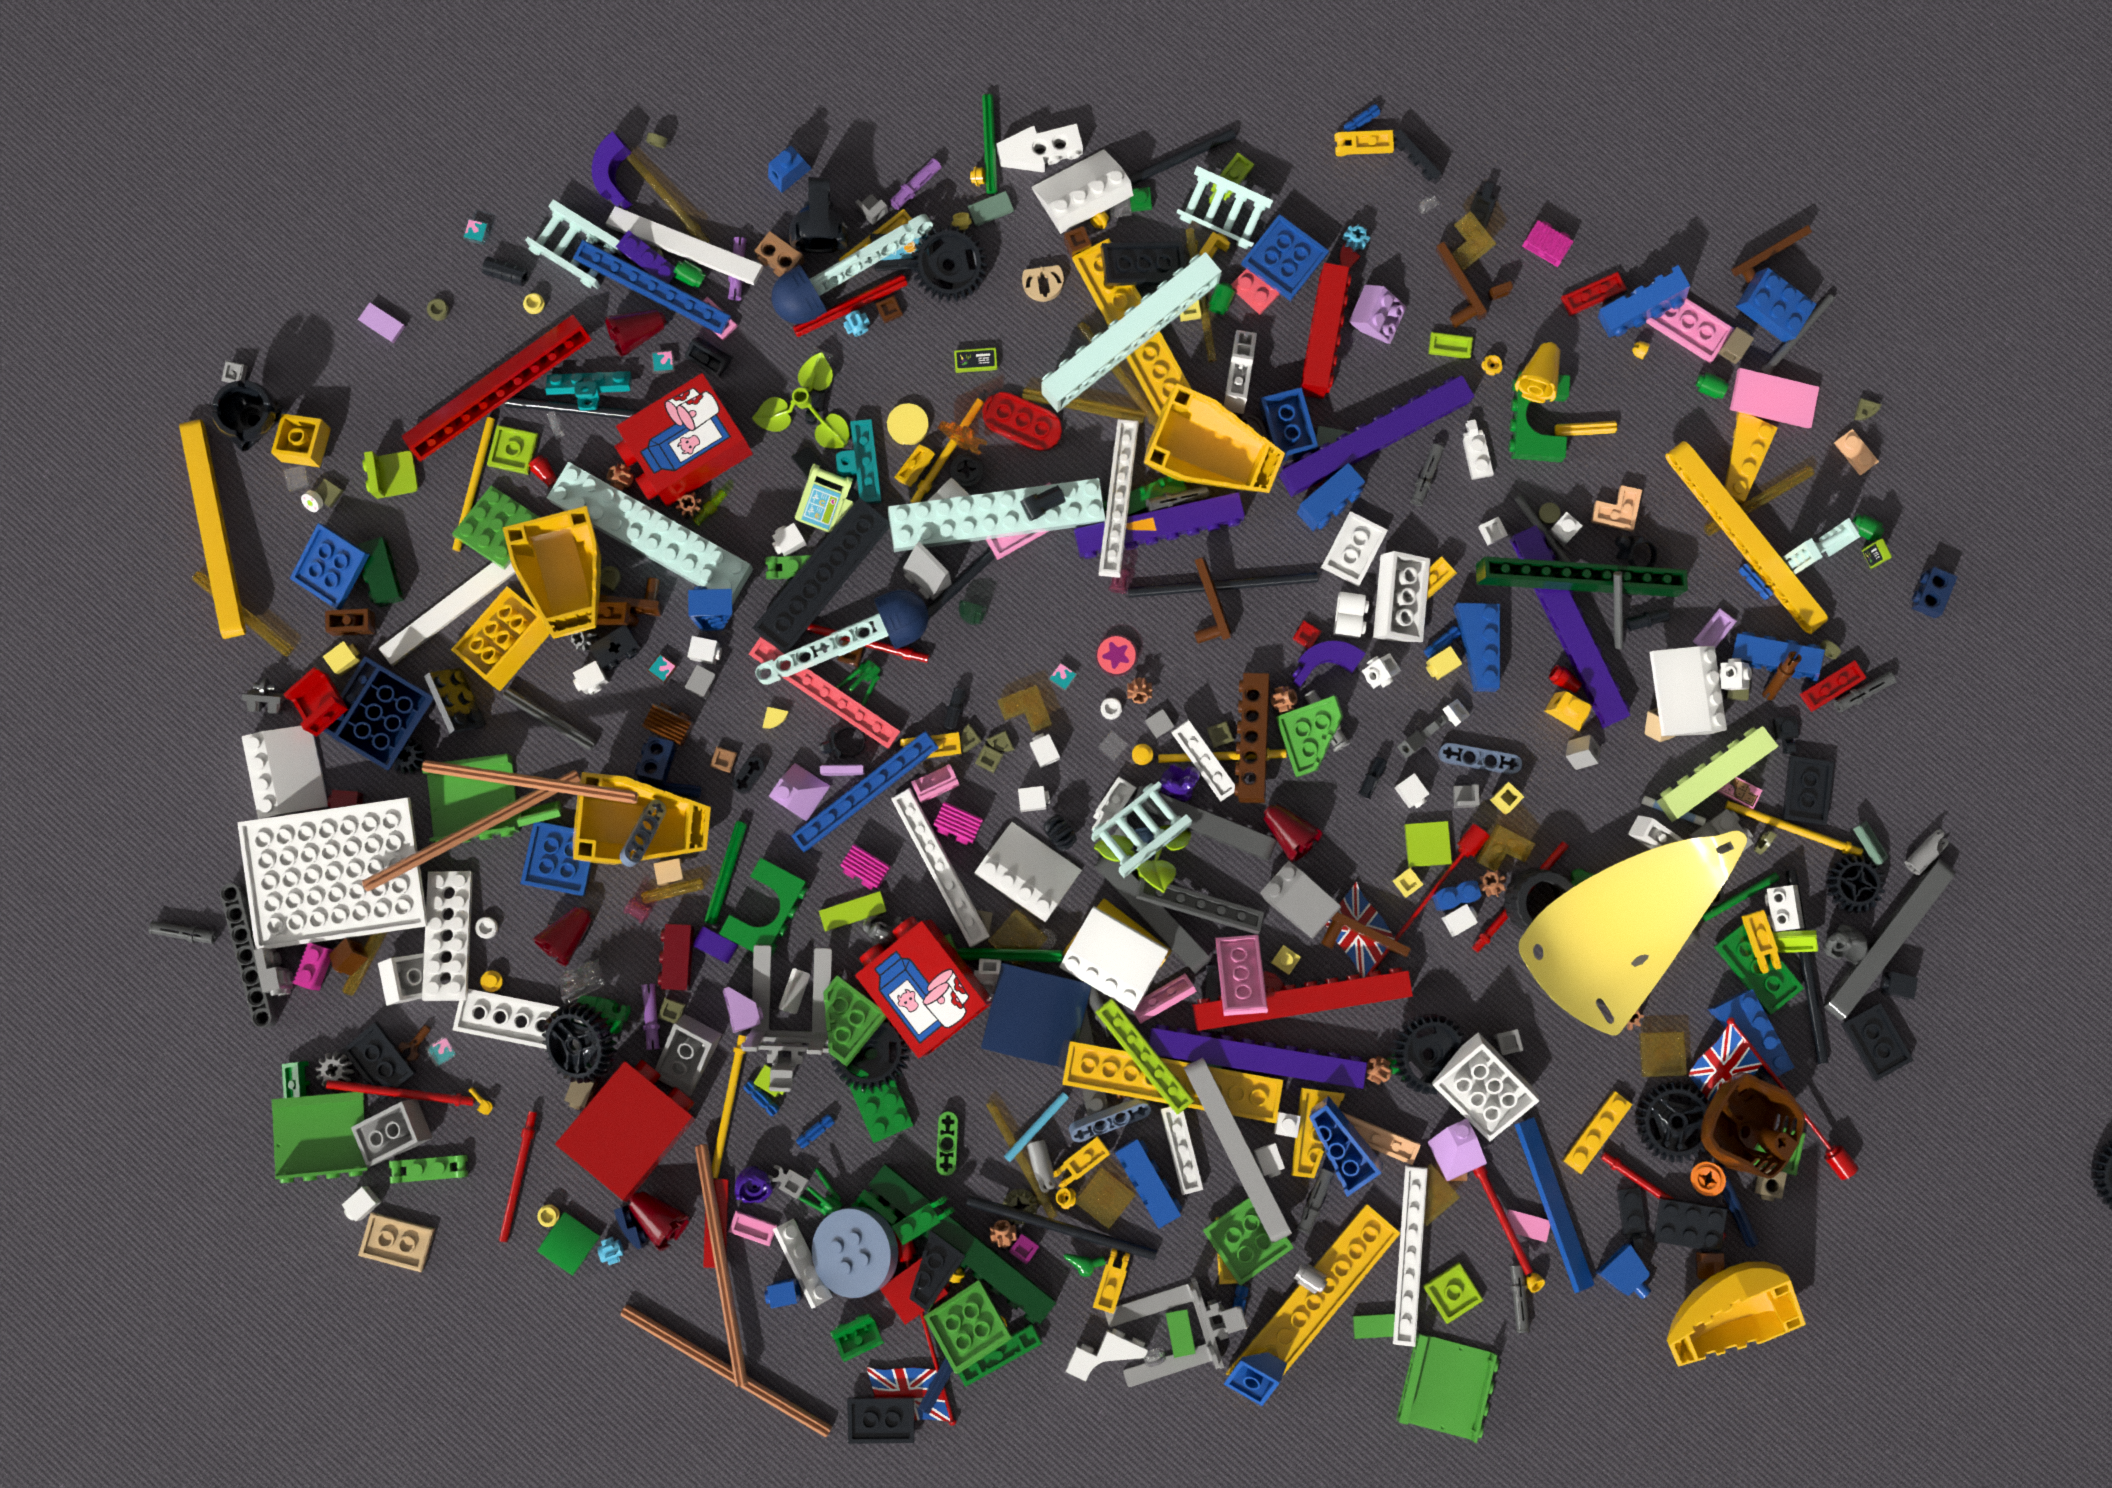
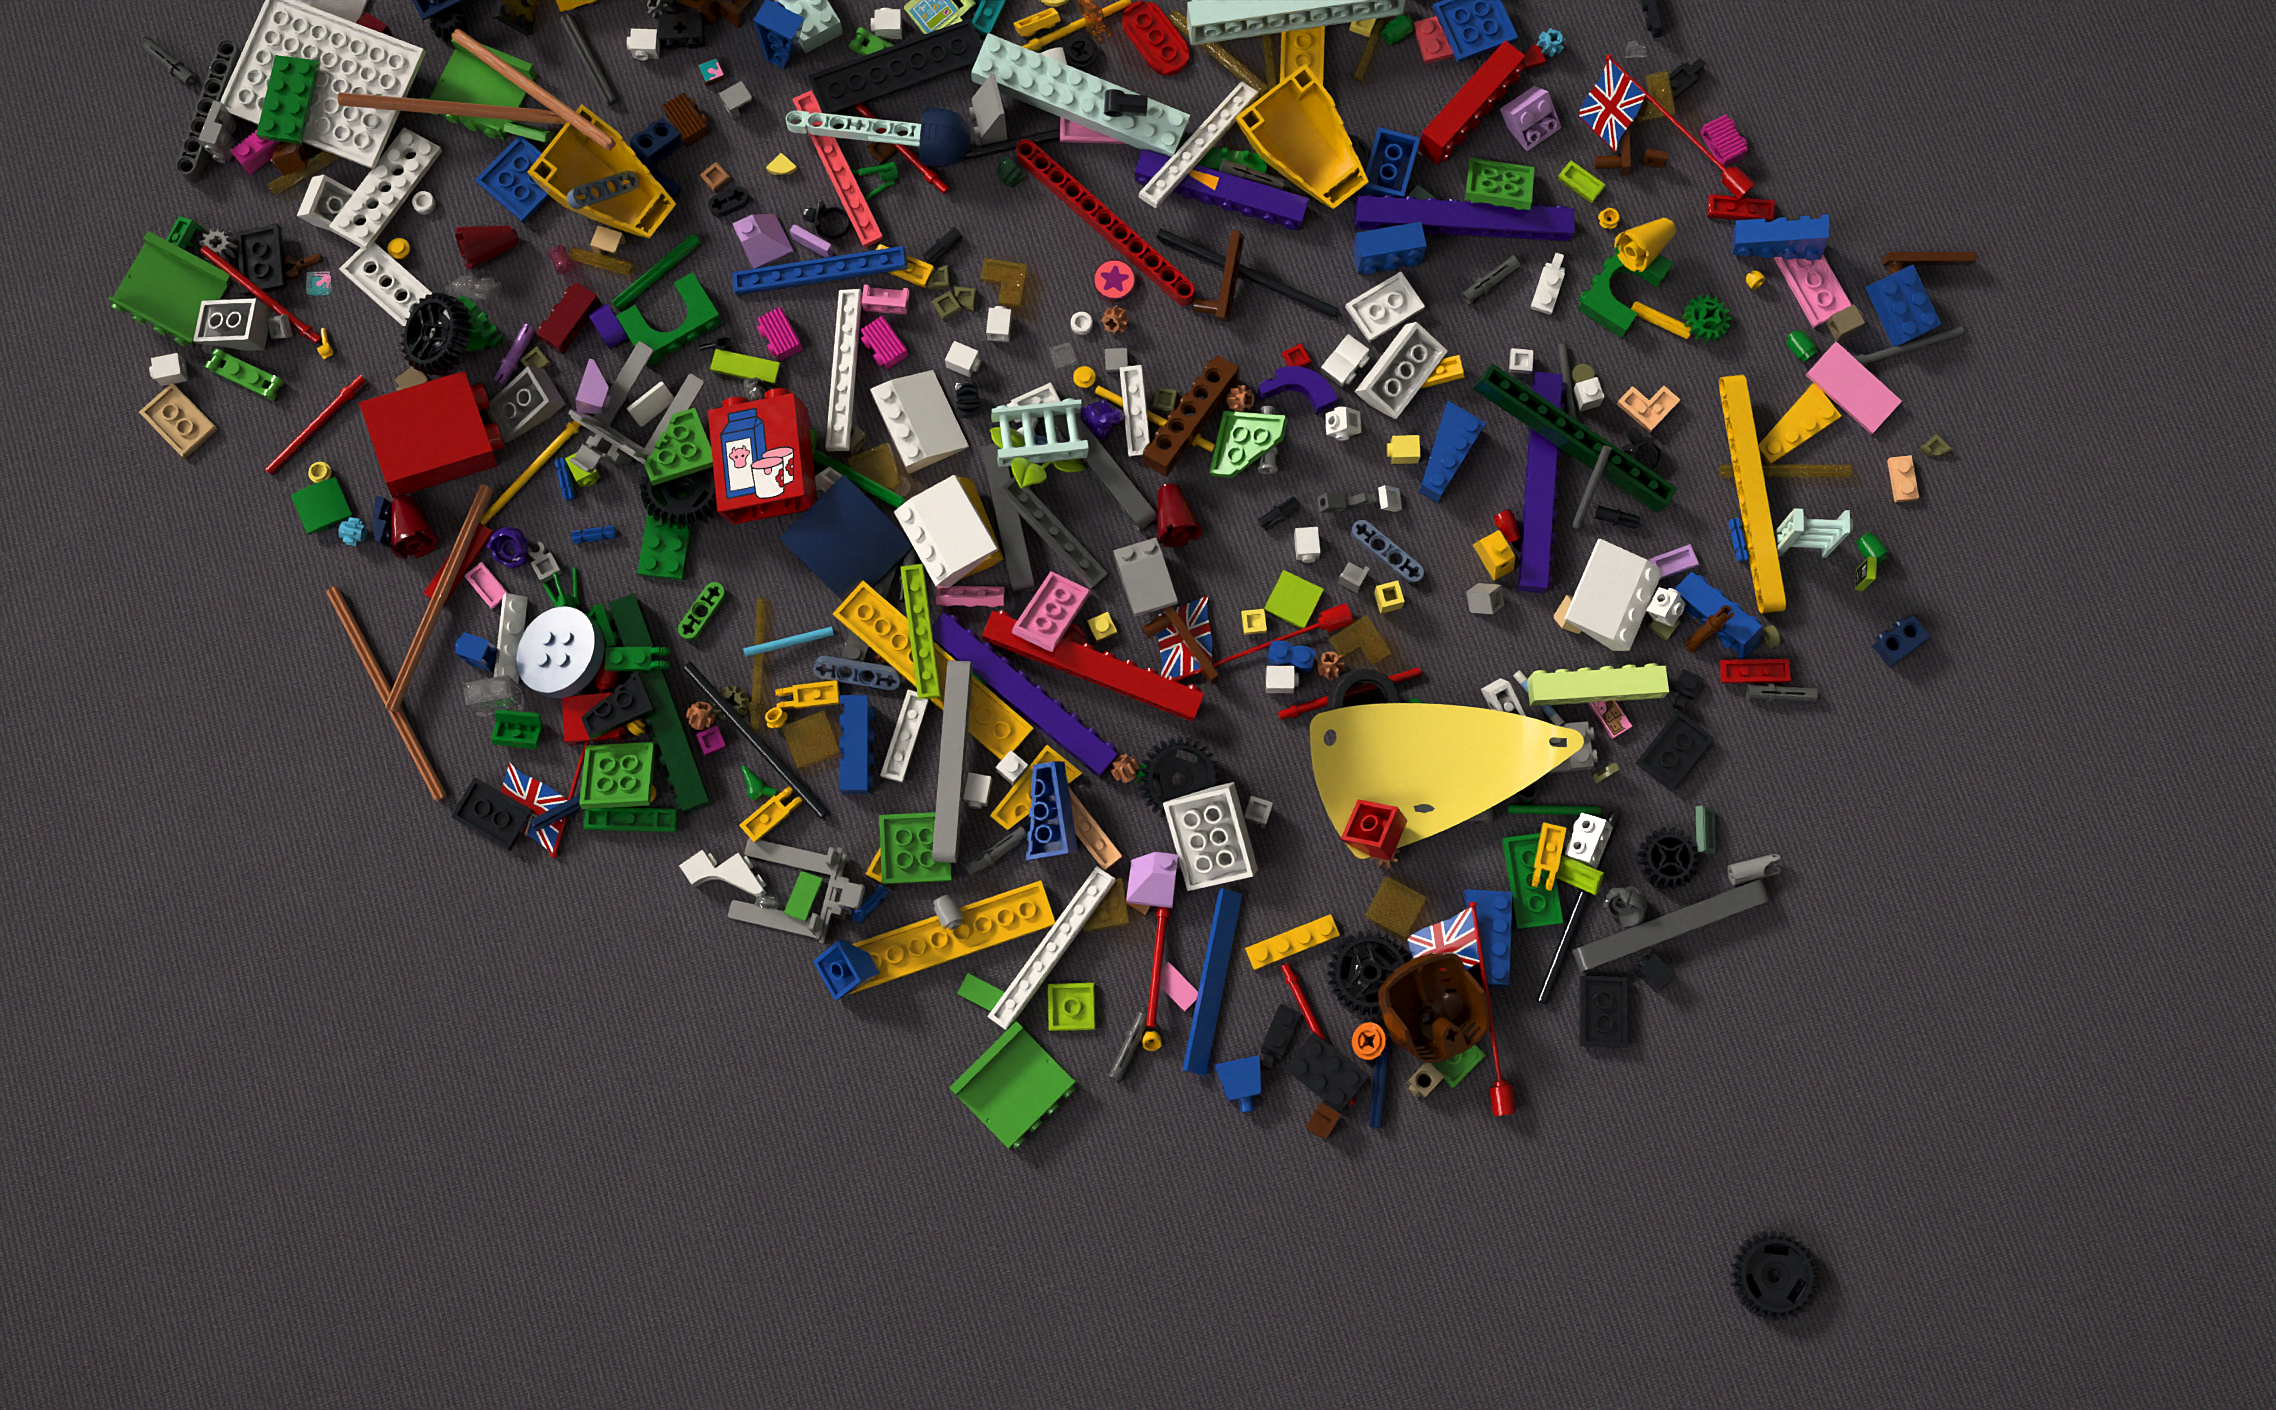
camera: 30 degrees right, 5 degrees down
(316, 909) = (288, 99): none -> green plate
(433, 1111) = (279, 326): none -> light grey tile
(704, 650) = (756, 75): white brick -> none
(817, 905) = (719, 343): none -> black hand
(822, 1323) = (493, 694): none -> clear brick
(1041, 1164) = (772, 675): light grey piece -> none
(1062, 677) = (1055, 272): tile -> none
(1089, 606) = (1108, 231): none -> red beam
(1119, 583) = (1156, 217): clear pink bush -> none
(1240, 371) = (1374, 96): white brick -> none
(1388, 388) = (1499, 183): none -> bright green plate
(1442, 642) = (1421, 430): blue axle -> none
(1443, 265) = (1614, 106): none -> flag
(1615, 1004) = (1374, 829): none -> red slope
(1623, 405) = (1701, 309): none -> green gear
(1733, 1309) = (1316, 1168): yellow windscreen -> none
(1845, 847) = (1641, 777): yellow bar -> none

